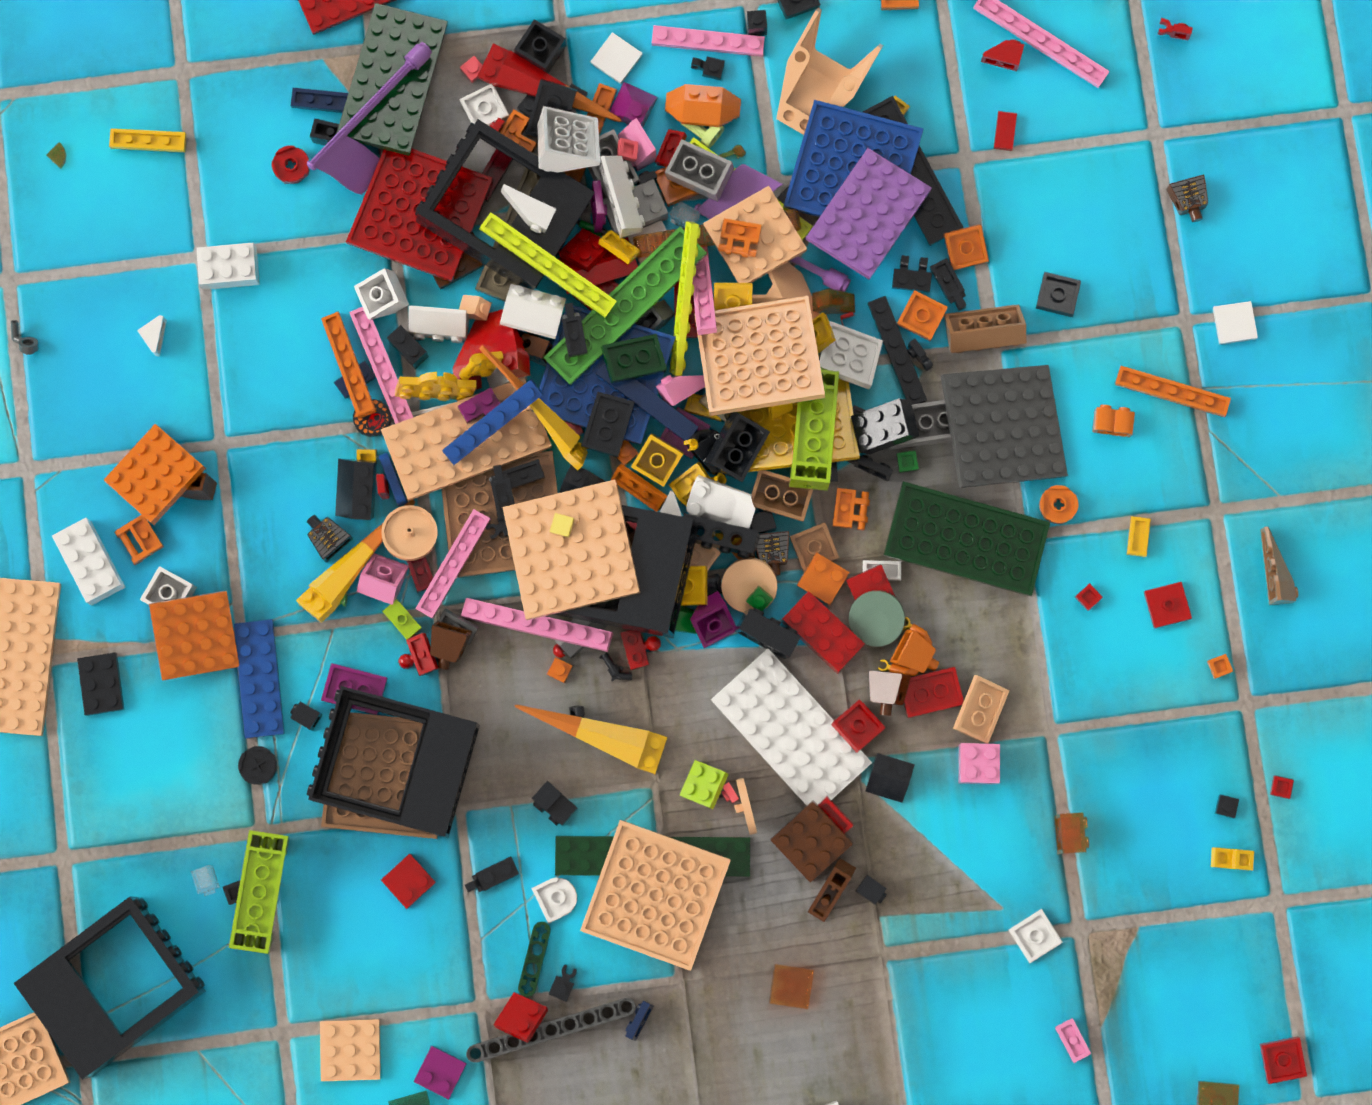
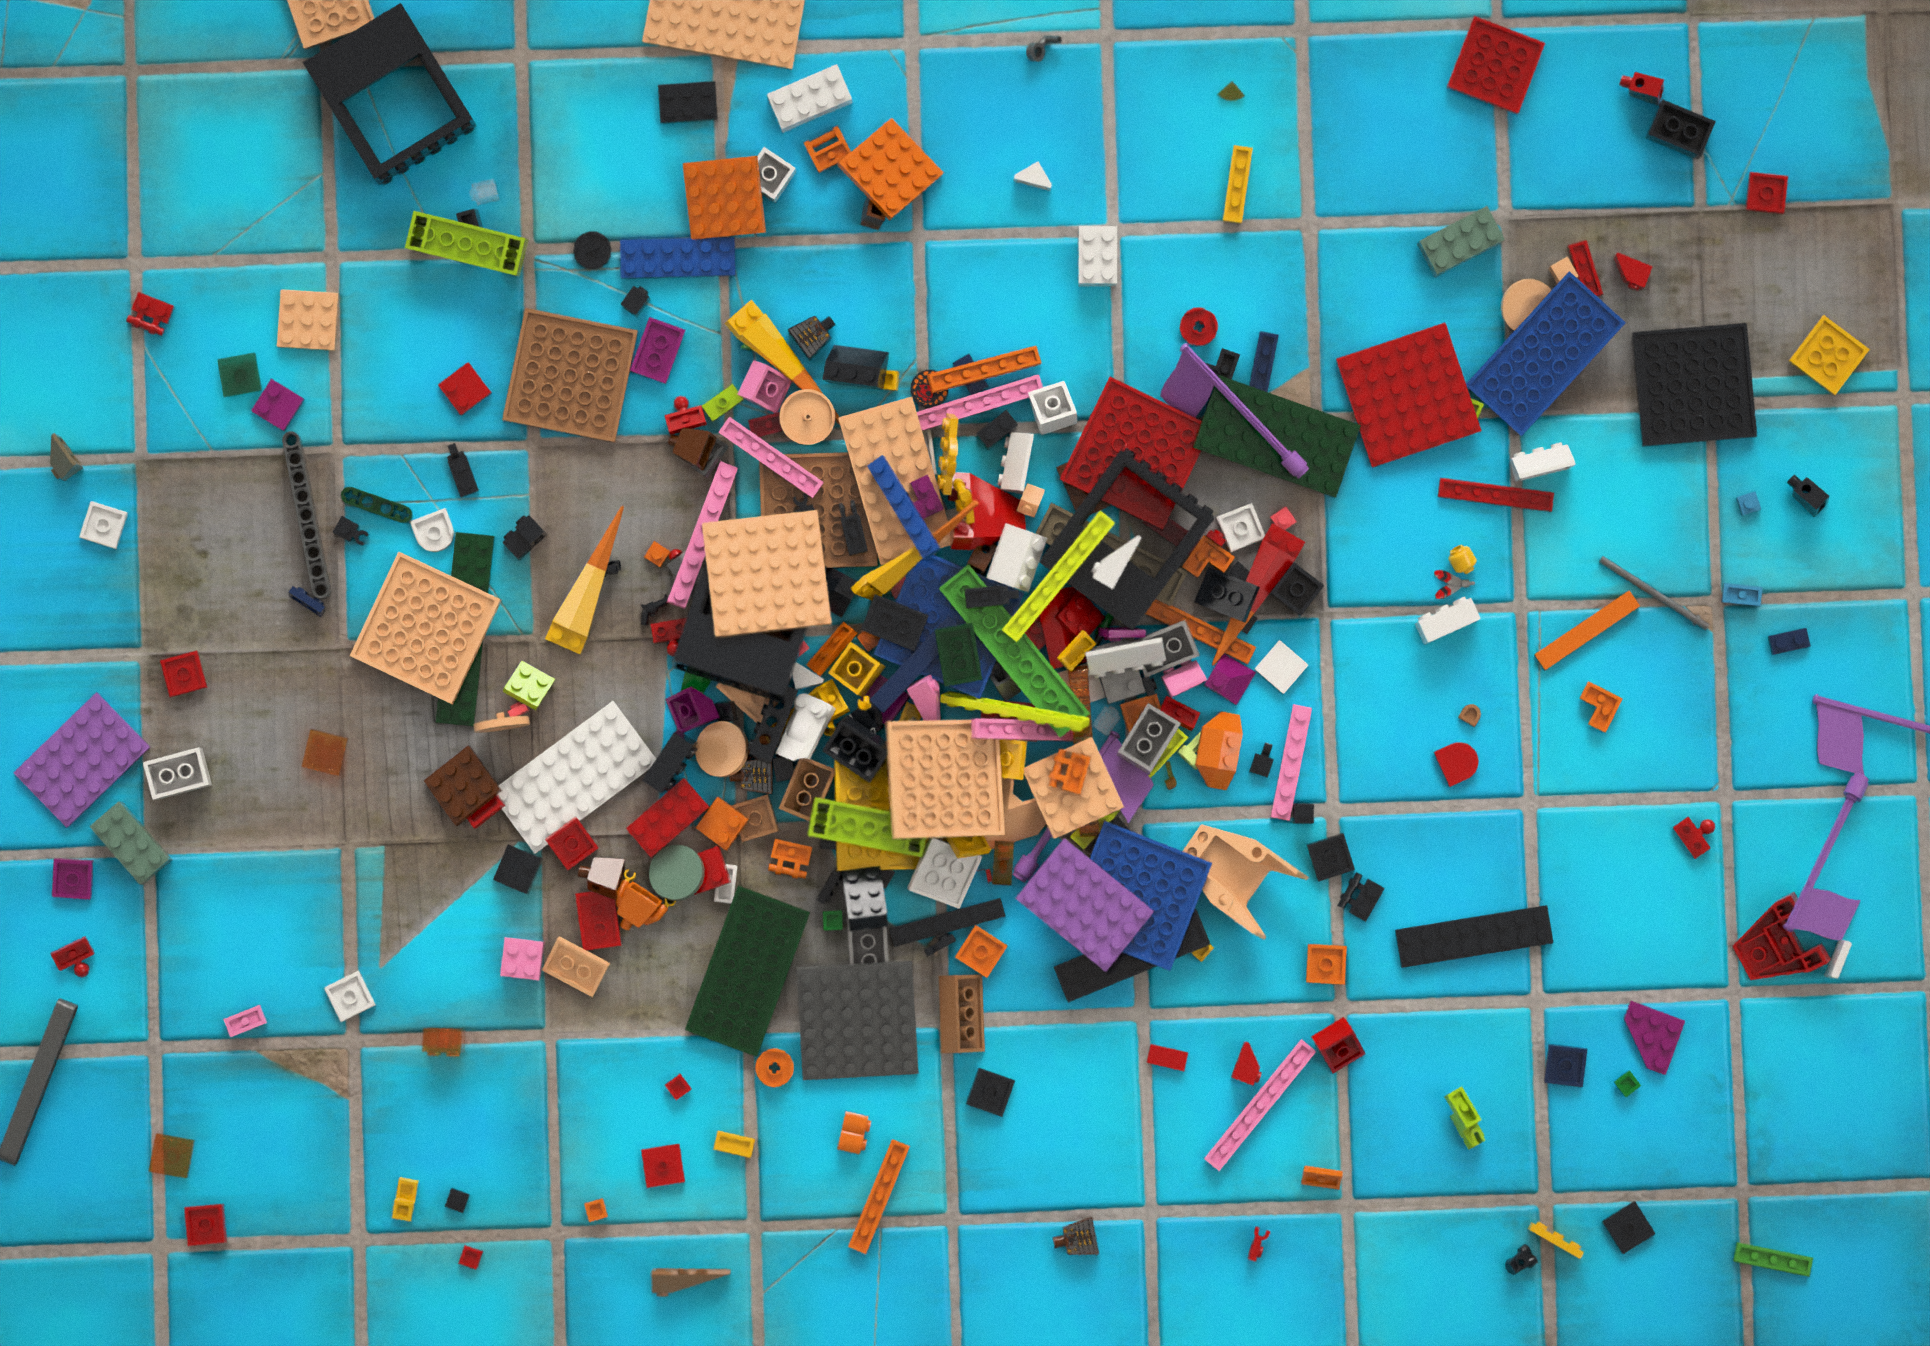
camera: 90 degrees right, 5 degrees up
(382, 486) = (855, 394): red tile -> none
(393, 479) = (864, 404): blue beam -> none
(435, 773) = (563, 422): black panel -> none
(501, 491) = (836, 511): black hinge -> none
(521, 1017) = (321, 486): red plate -> none
(562, 525) = (789, 566): light yellow tile -> none
(567, 140) = (1187, 607): white slope -> none
(627, 149) = (1174, 667): coral plate -> none
(696, 587) = (723, 695): yellow plate -> none
(759, 599) = (706, 757): green plate -> none
(832, 889) = (414, 801): reddish brown slope -> none
(871, 890) = (409, 840): black brick -> none
(912, 280) = (1020, 943): black plate -> none
(949, 283) = (1012, 982): black hinge -> none
(966, 247) = (1047, 1003): orange plate -> none
(1235, 322) = (944, 1269): white tile -> none

